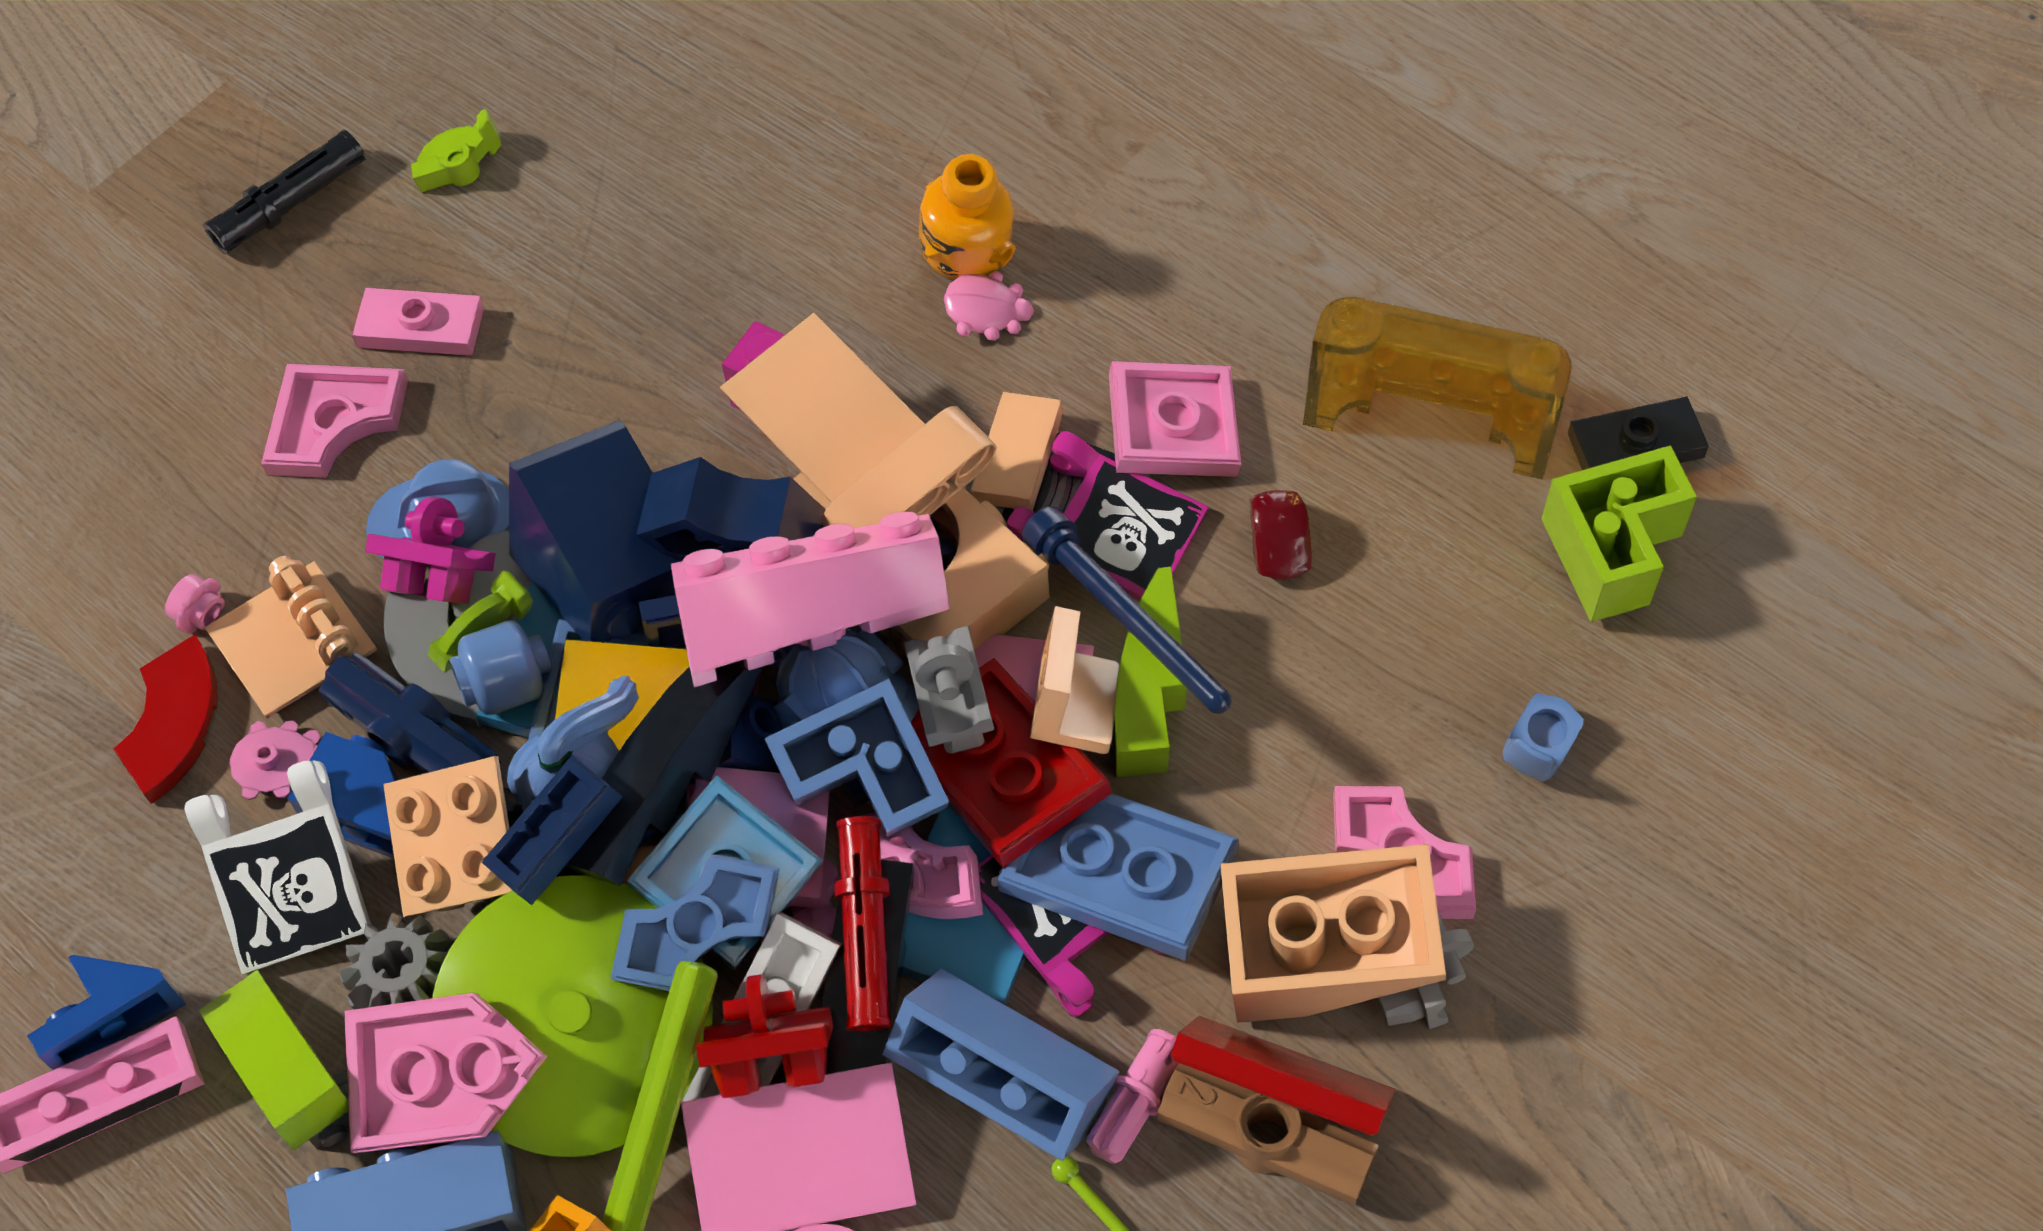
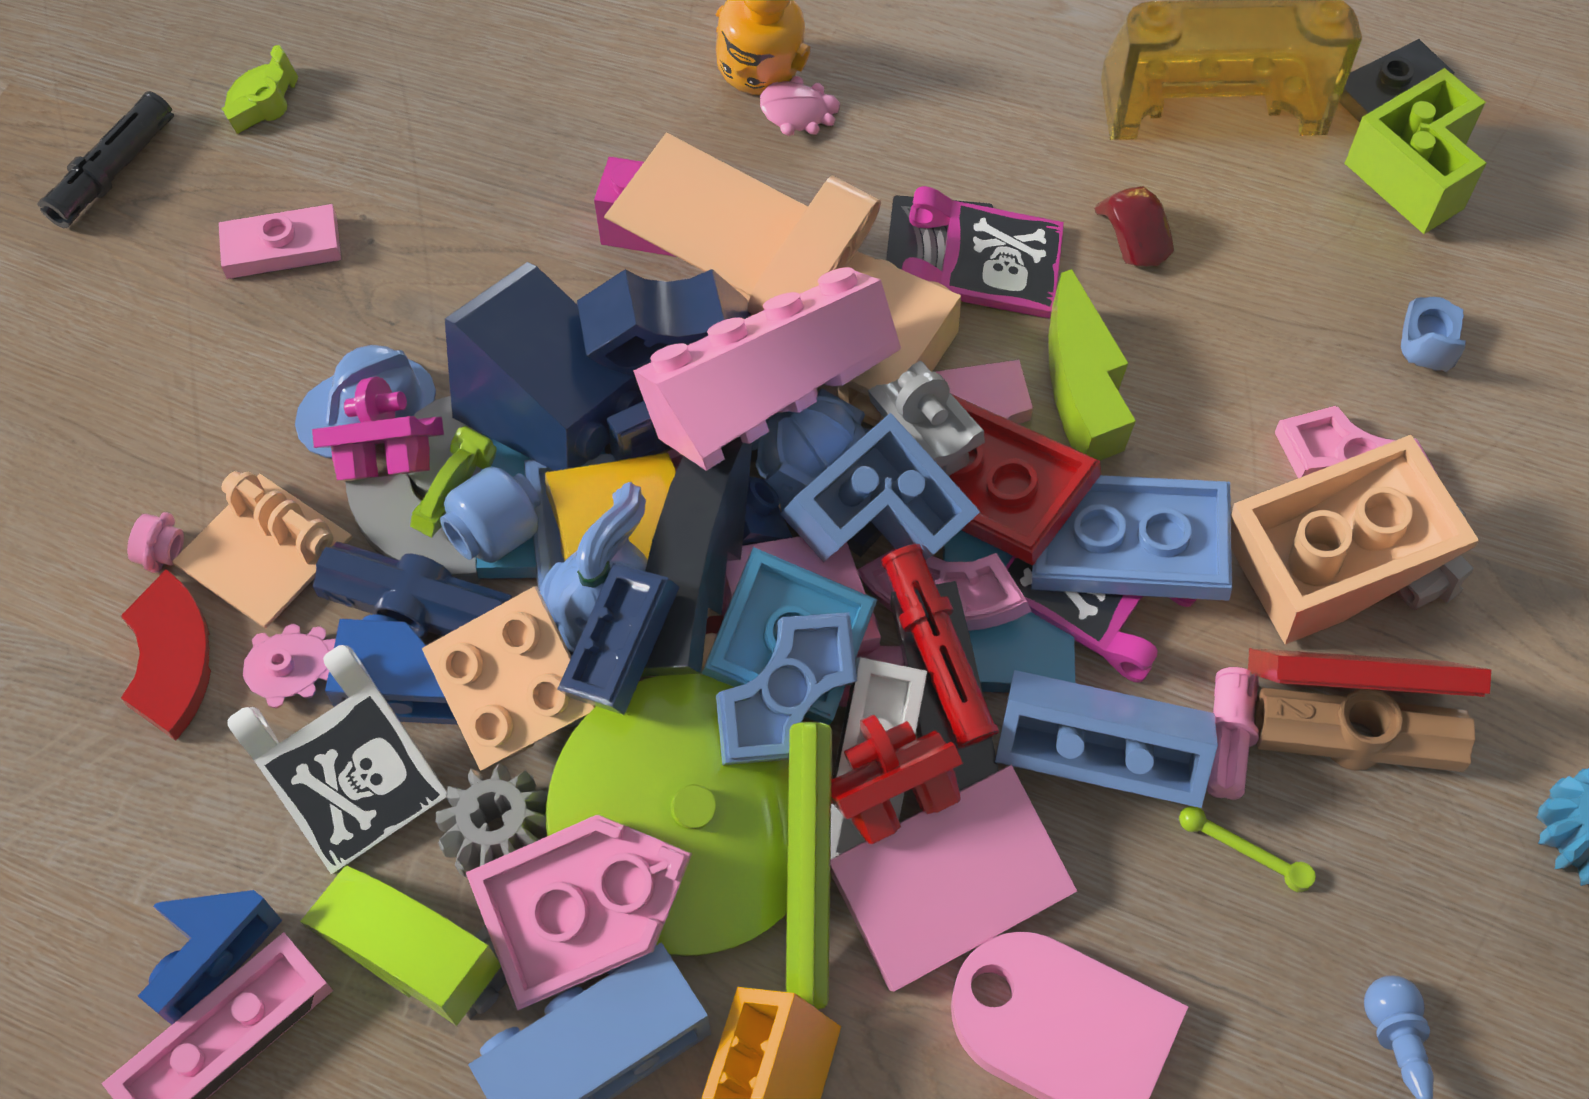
camera: 20 degrees left, 0 degrees up
(327, 411) = (220, 340): bright pink tile -> none
(1024, 440) = (890, 232): light nougat tile -> none
(1057, 538) = (957, 273): dark blue piece -> none
(1073, 690) = (1026, 395): light nougat panel -> none
(1174, 419) = (1004, 158): bright pink tile -> none

